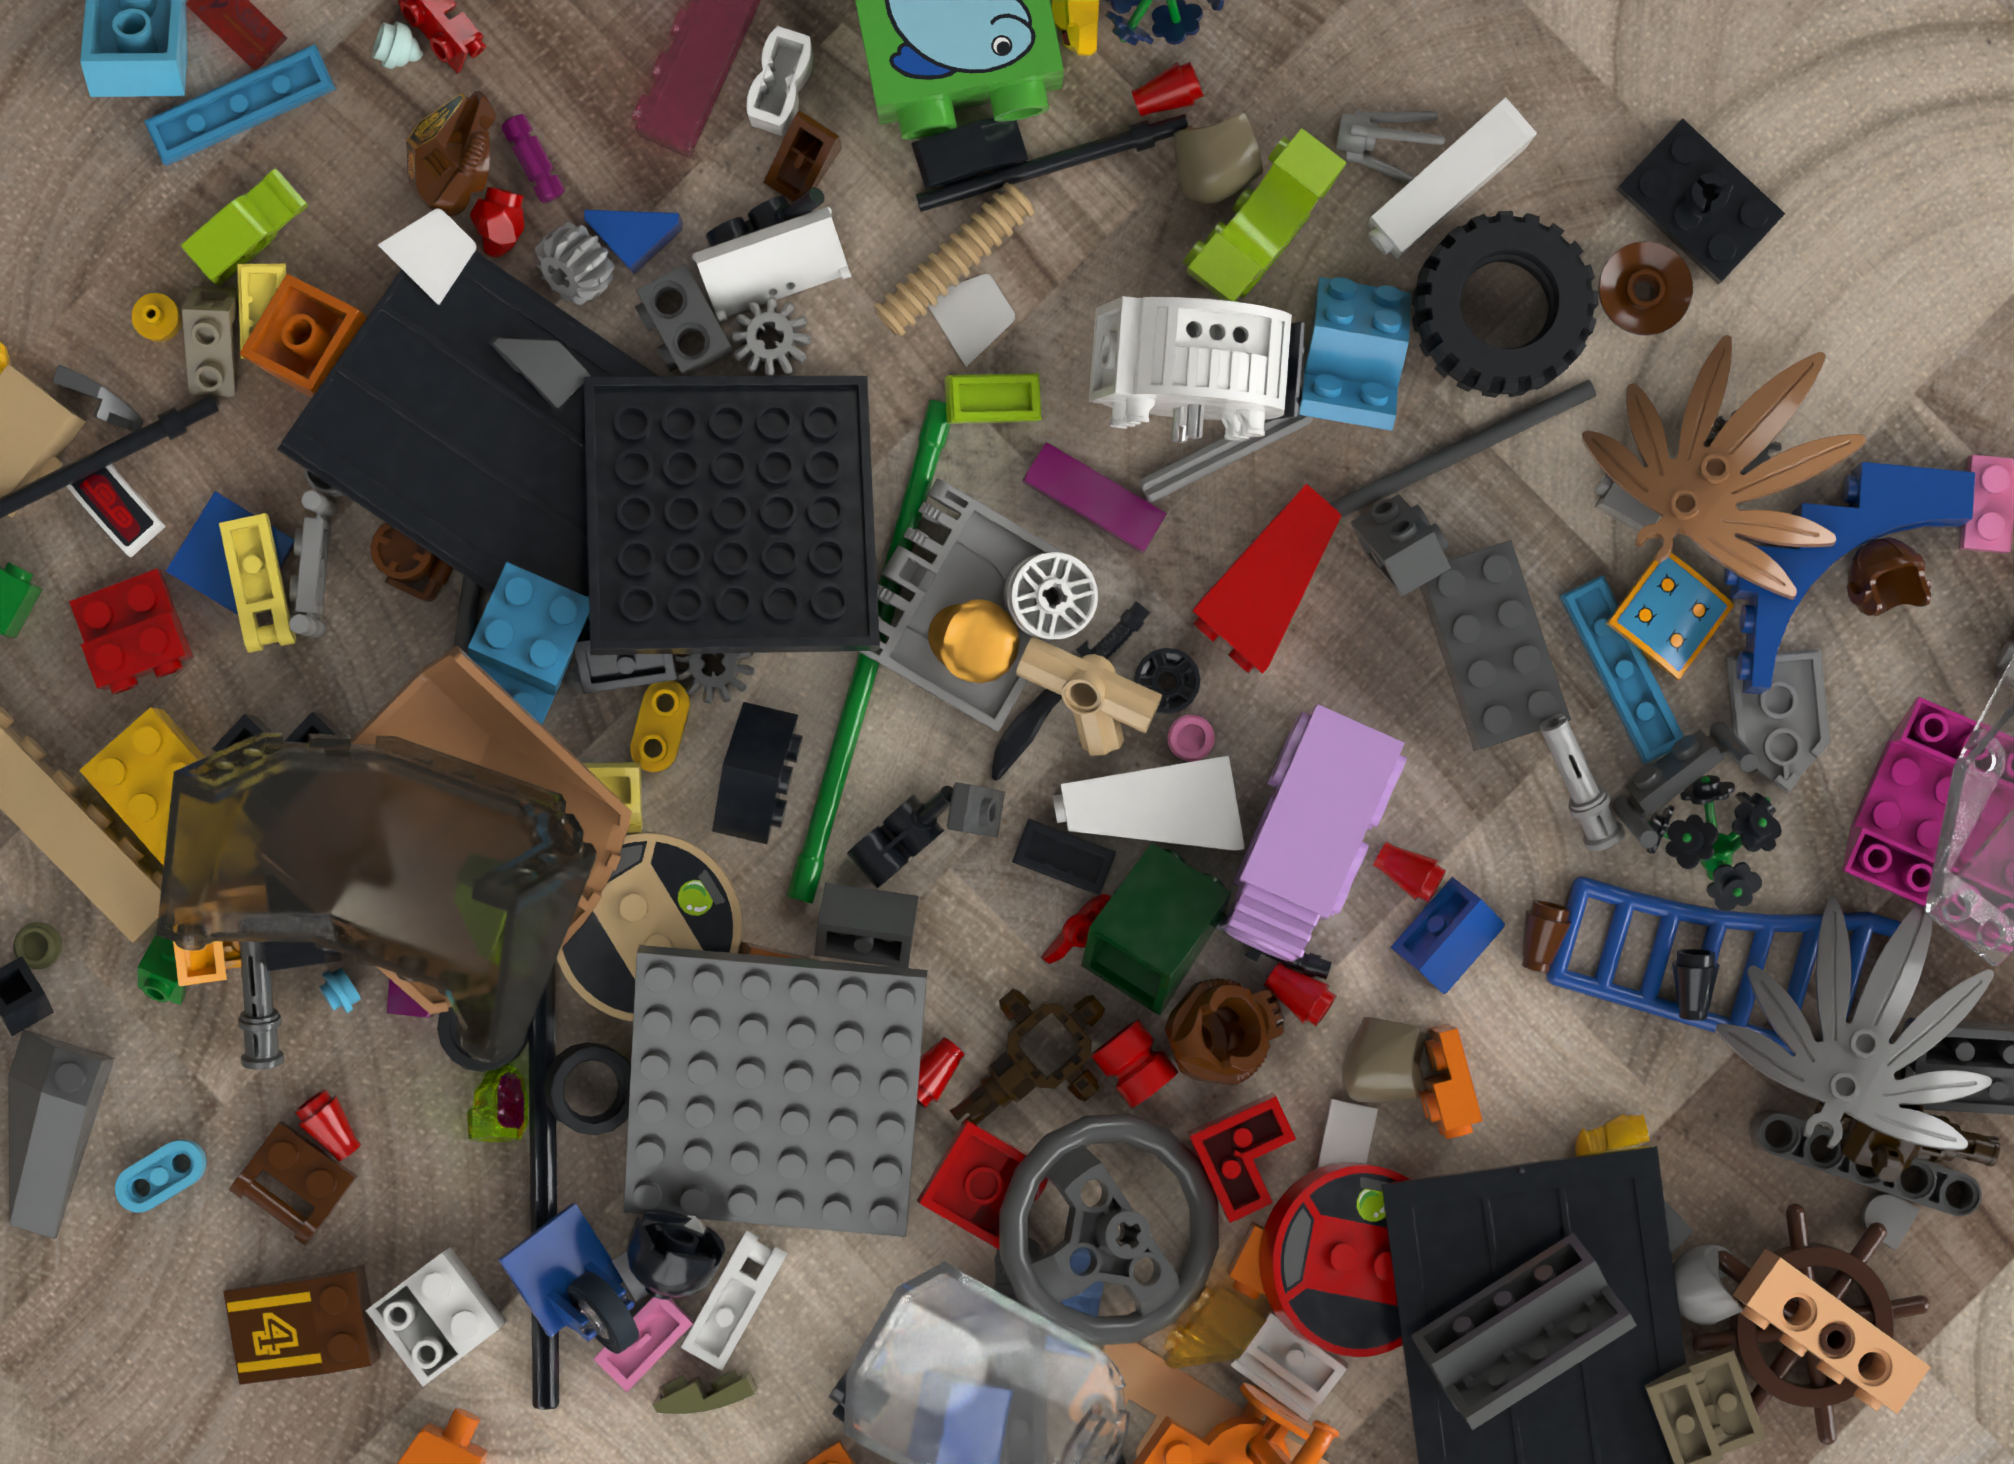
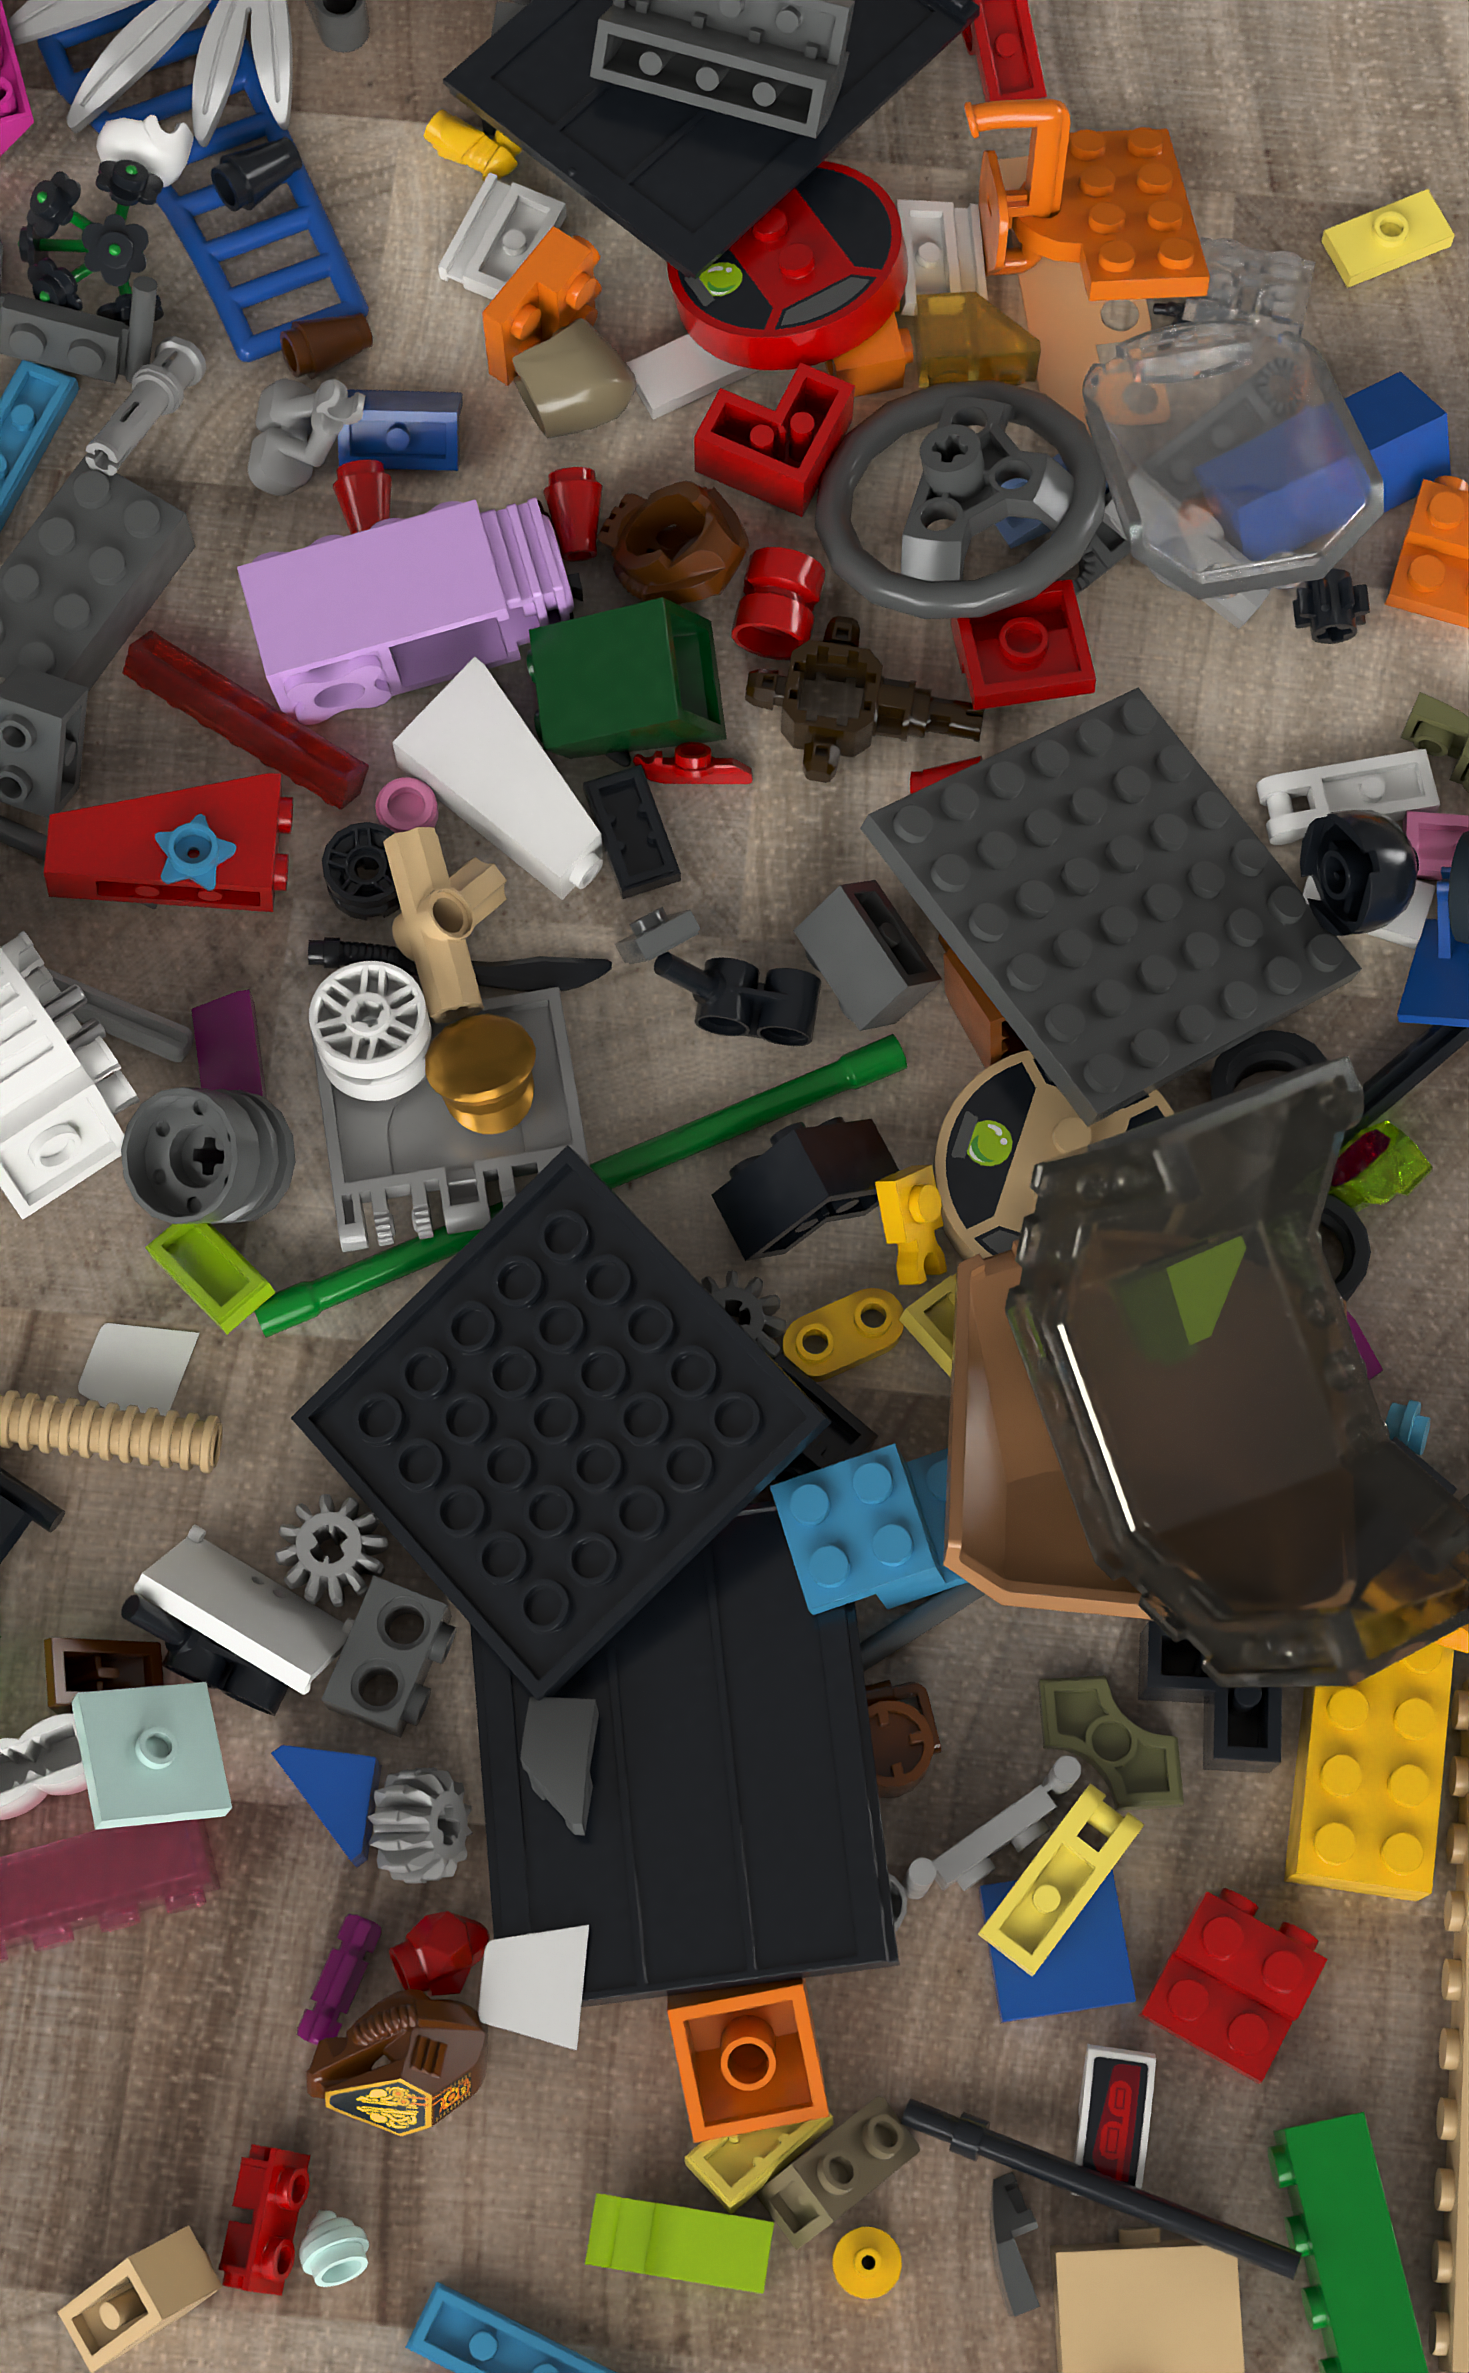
camera: 130 degrees left, 15 degrees down
(290, 681) = (1135, 1764): none -> olive tile
(691, 816) = (909, 1216): none -> yellow plate
(726, 145) = (151, 1755): none -> light aqua plate
(1048, 441) = (207, 1156): none -> dark grey wheel
(1261, 575) = (194, 836): none -> dark azure plate
(1324, 685) = (245, 720): none -> clear red piece
(1509, 870) = (286, 415): none -> light grey piece
(1526, 1102) = (498, 235): none -> white plate
(1757, 924) = (148, 145): none -> white hair

